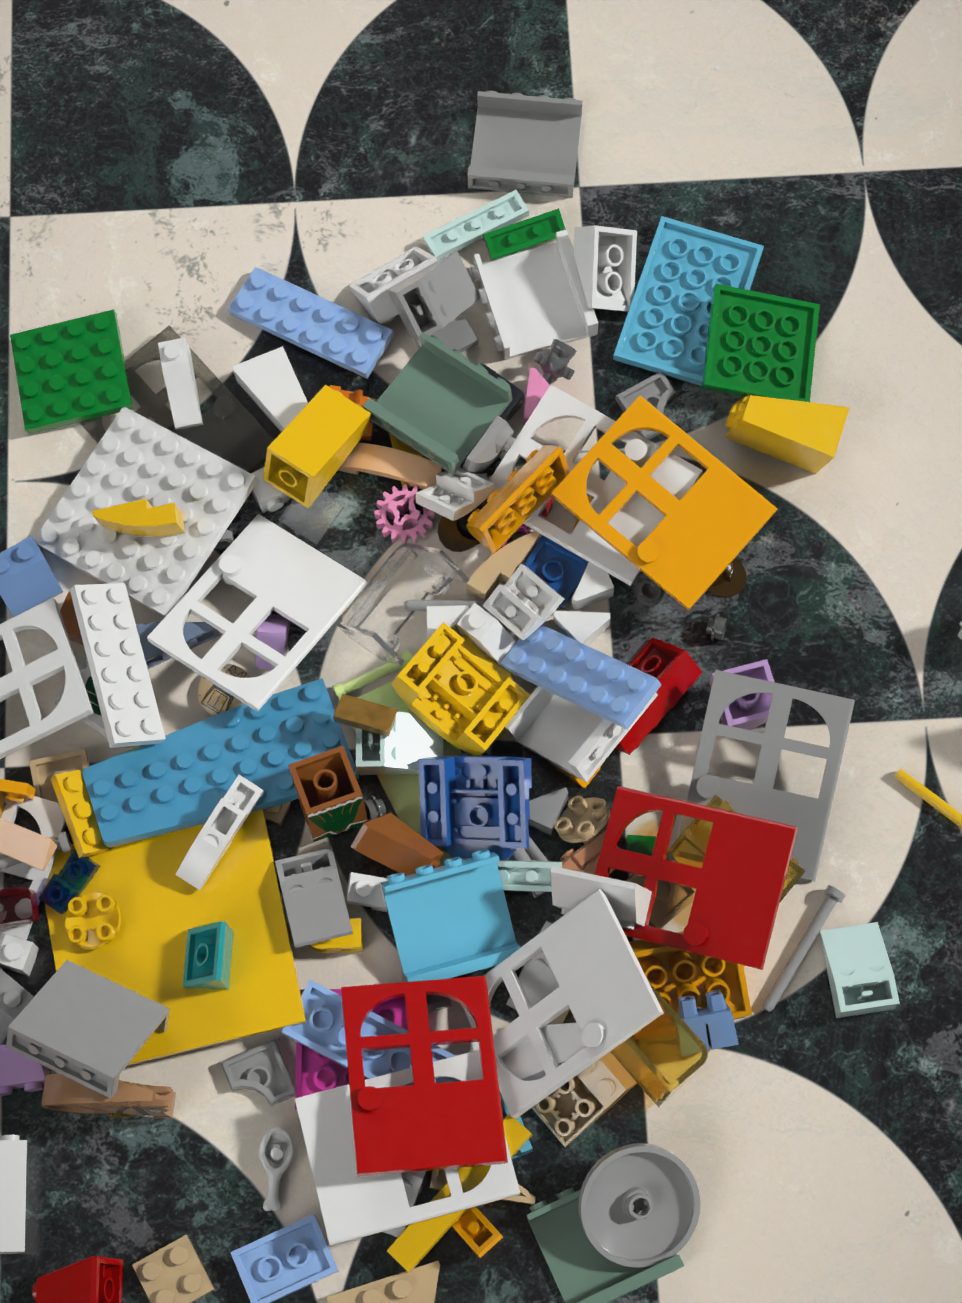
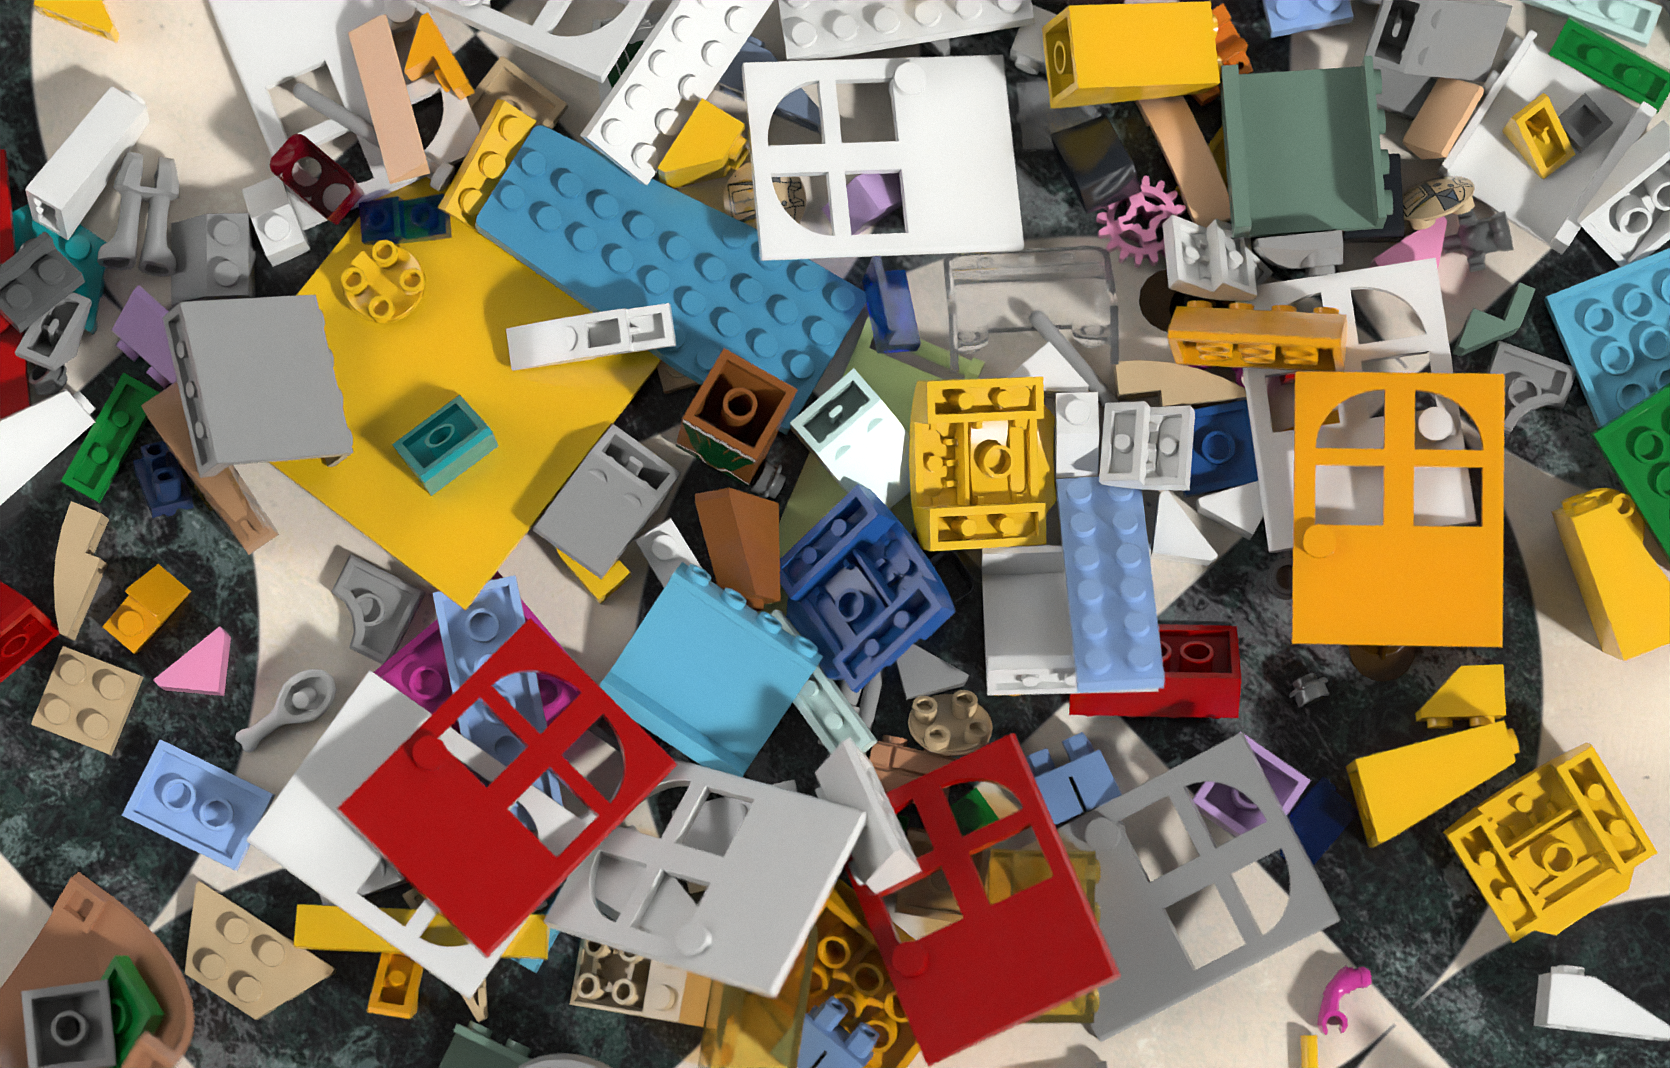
camera: 50 degrees right, 10 degrees up
(42, 1142) = (109, 439): none -> green plate
(91, 1131) = (162, 480): none -> dark blue hips
(95, 1218) = (76, 567): none -> tan slope
(151, 1201) = (146, 608): none -> light orange slope
(173, 693) = (704, 148): none -> yellow slope
(211, 1197) = (201, 668): none -> bright pink slope
(339, 672) = (890, 309): none -> clear blue panel
(356, 510) = (1095, 163): none -> black piece
(365, 715) = (856, 383): pearl gold slope -> none
(481, 330) = (1442, 118): none -> light nougat slope
(520, 363) = (1437, 199): none -> tan dish
(530, 294) = (1540, 136): none -> yellow slope
(541, 270) = (1584, 122): none -> dark grey plate
(604, 395) = (1484, 329): none -> sand green slope
(670, 773) = (1086, 770): none -> medium blue hips
(784, 552) = (1468, 694): none -> yellow slope
(789, 672) = (1320, 819): none -> clear blue panel
(811, 608) = (1418, 779): none -> yellow slope
(884, 733) = (1342, 983): none -> dark pink piece
(895, 571) = (1552, 844): none -> yellow slope

